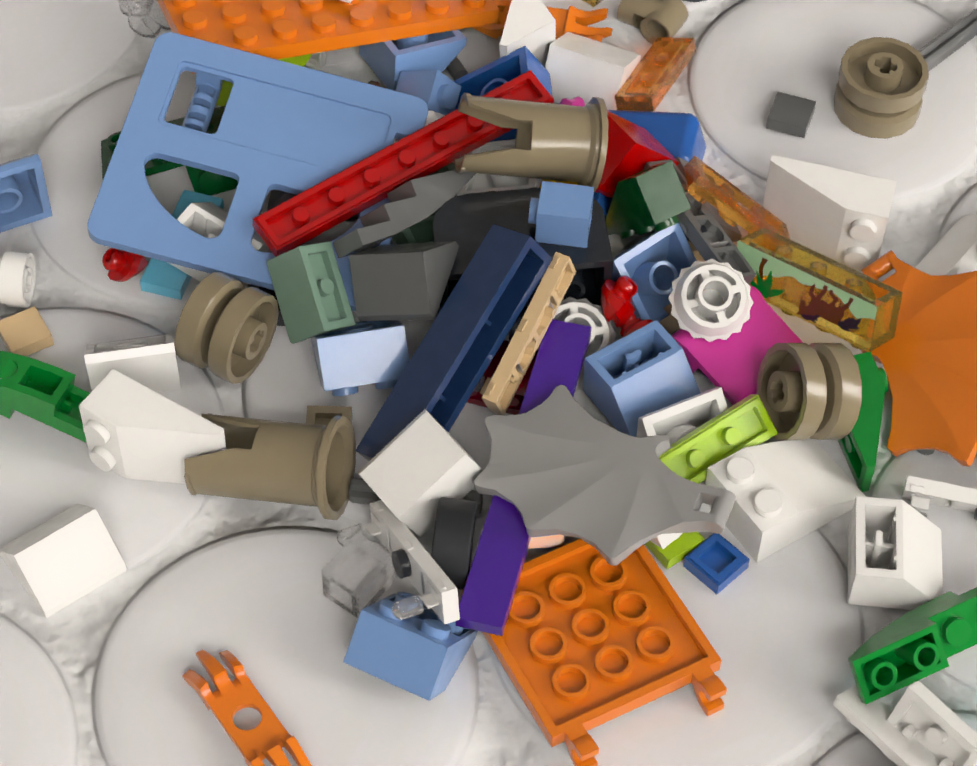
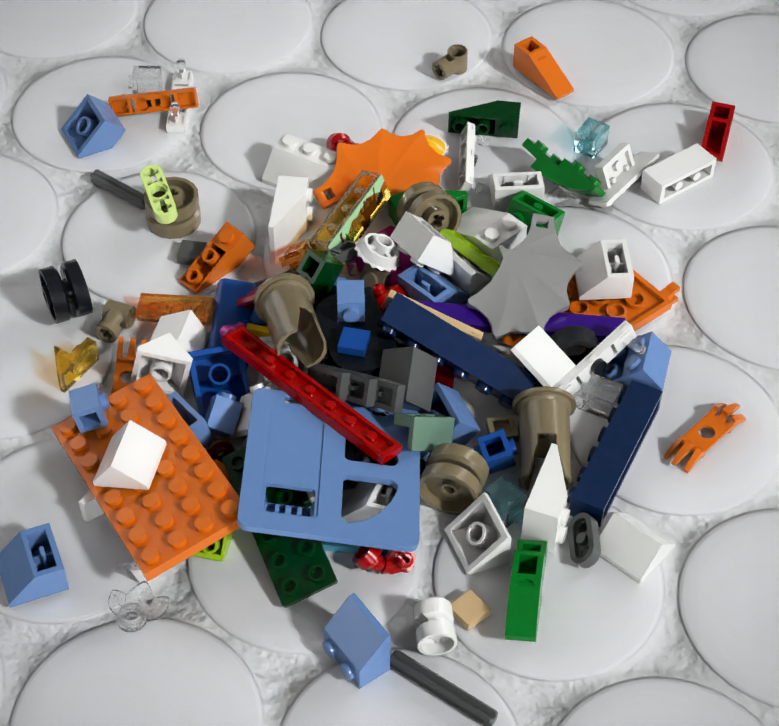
camera: 100 degrees left, 5 degrees down
(66, 483) = (584, 540): none -> dark grey plate
(189, 388) = (507, 500): none -> clear light blue brick
(238, 567) = (615, 452): none -> dark blue brick
(271, 393) = (497, 451): none -> blue brick
(484, 211) = (353, 341): none -> blue tile
(618, 627) = (605, 271): none -> white slope
(712, 353) = (423, 244): none -> white slope
(763, 132) = (218, 258): none -> orange slope
(799, 562) = (525, 204): none -> green brick
(912, 40) = (157, 202): none -> yellowish green beam

